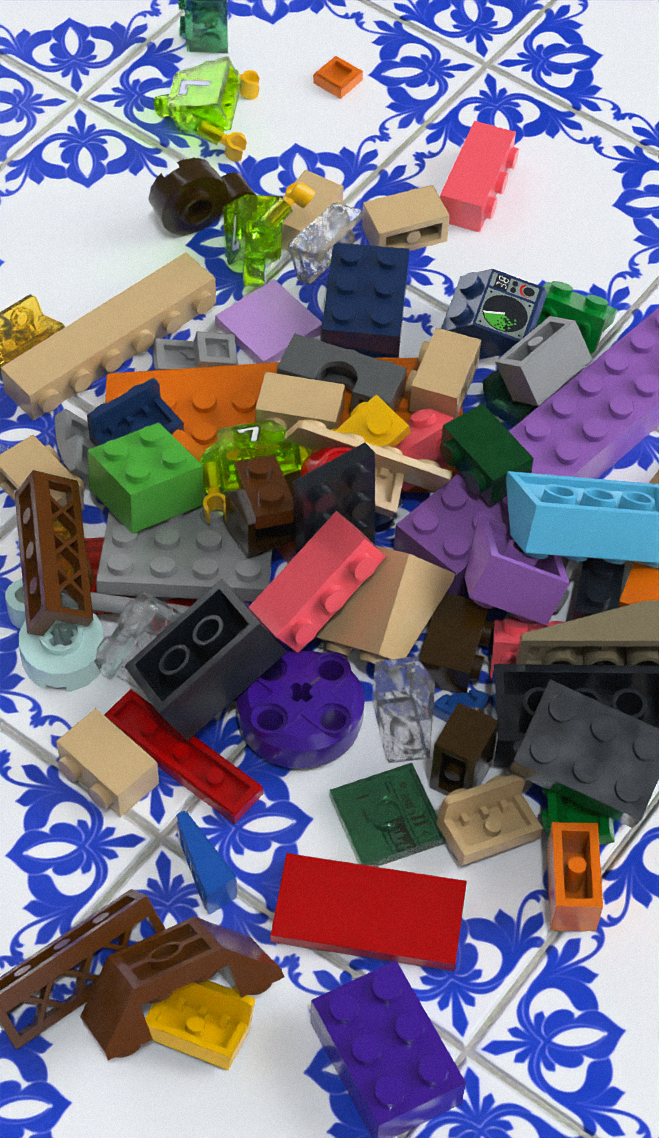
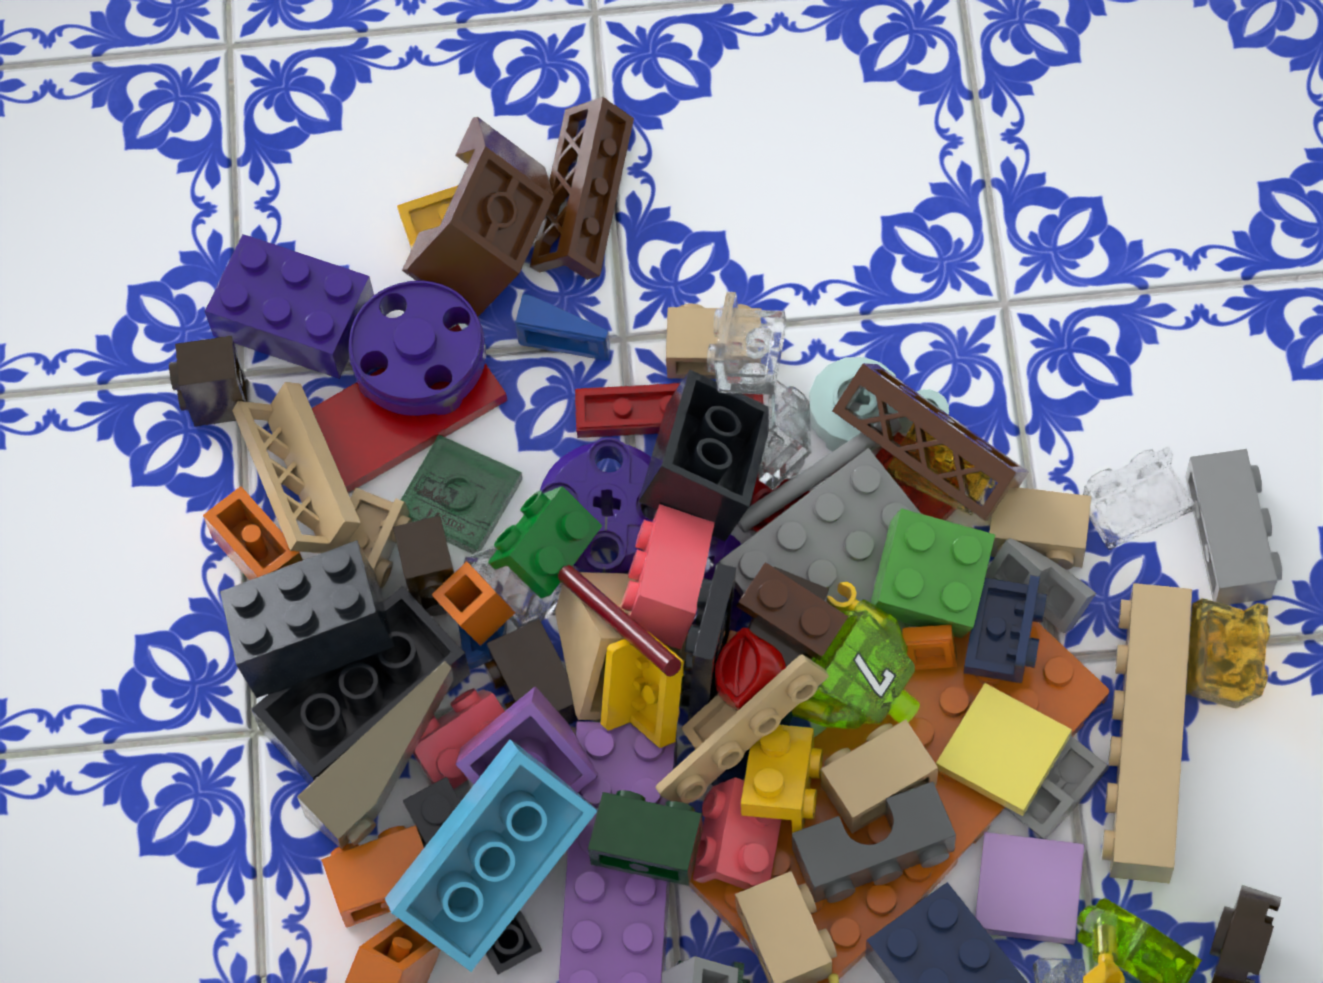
camera: 145 degrees right, 10 degrees up
(103, 696) = (746, 348): none -> clear bracket
(208, 377) = (1003, 749): none -> light yellow tile
(325, 919) = (417, 348): none -> dark purple piece
(376, 681) = (545, 539): none -> green bracket
(387, 552) = (619, 621): none -> dark red bar
(400, 523) = (640, 694): none -> yellow bracket
(455, 685) = (473, 603): none -> orange brick
(489, 900) = (309, 470): none -> tan fence
(507, 1024) = (208, 379): none -> dark brown brick

